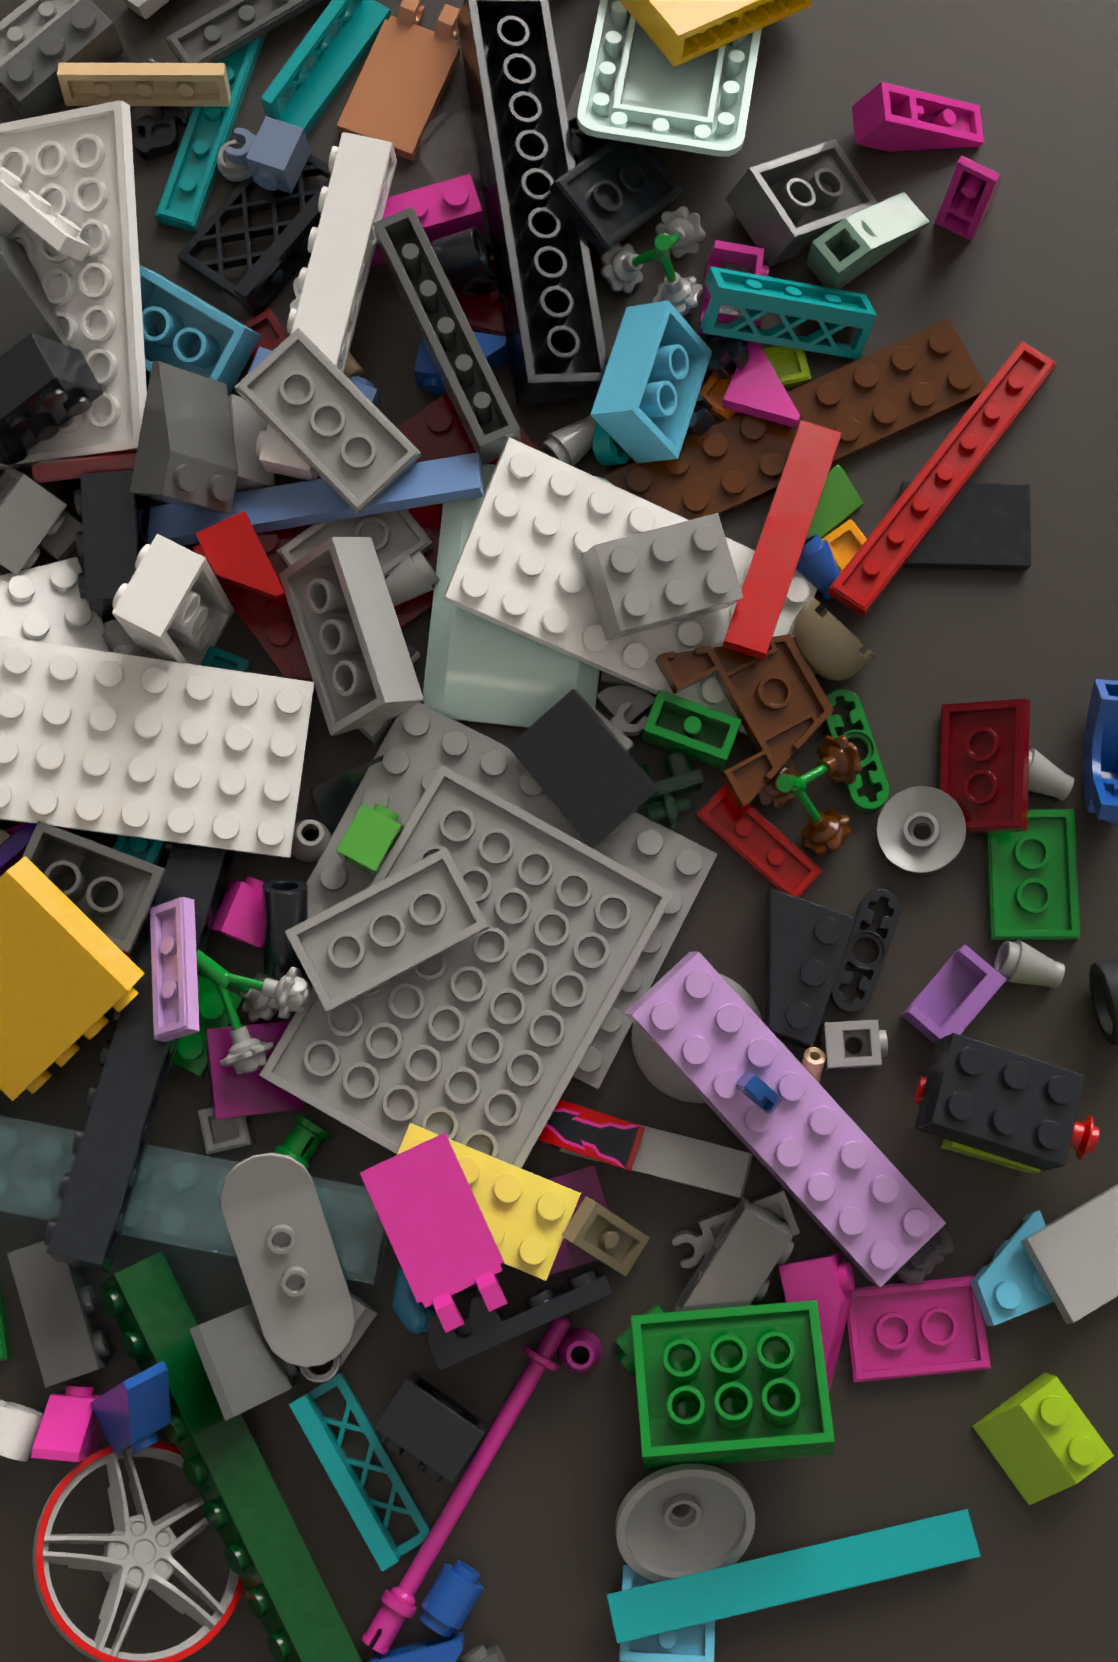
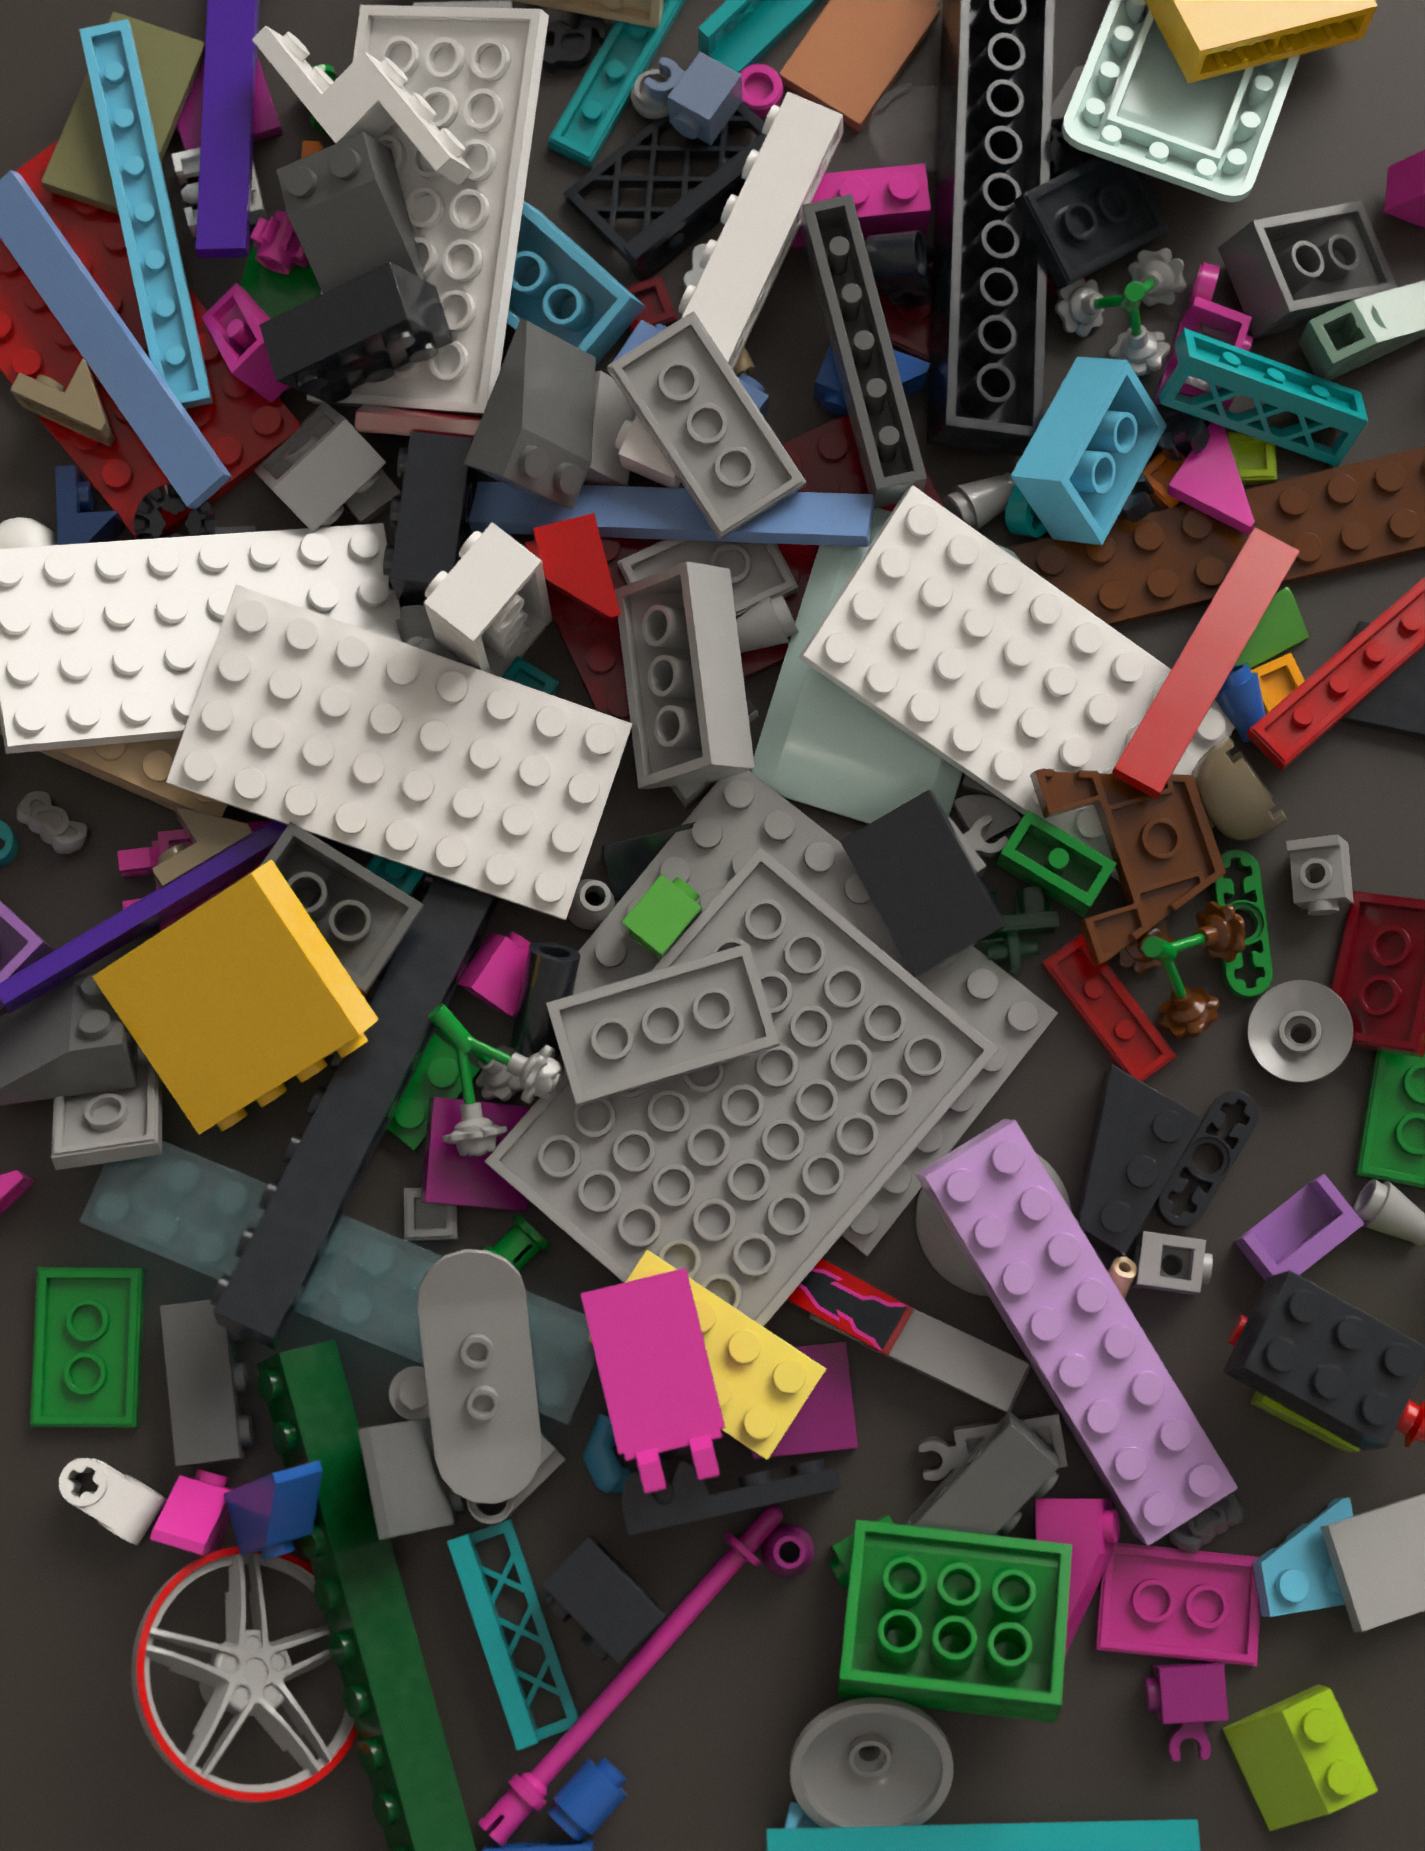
camera: 10 degrees right, 0 degrees up
(174, 969) = (412, 1021): lavender tile -> none
(232, 1286) = (409, 1393): none -> light grey brick
(322, 137) = (761, 88): none -> dark pink tile
(605, 1236) = (844, 1424): dark tan slope -> none
(661, 576) = (1057, 680): light grey brick -> none
(720, 227) = (1205, 282): none -> dark pink tile
(758, 1092) = (1052, 1293): blue tile -> none
(927, 702) = (1336, 886): none -> light grey brick
(939, 1407) = (1189, 1697): none -> magenta brick

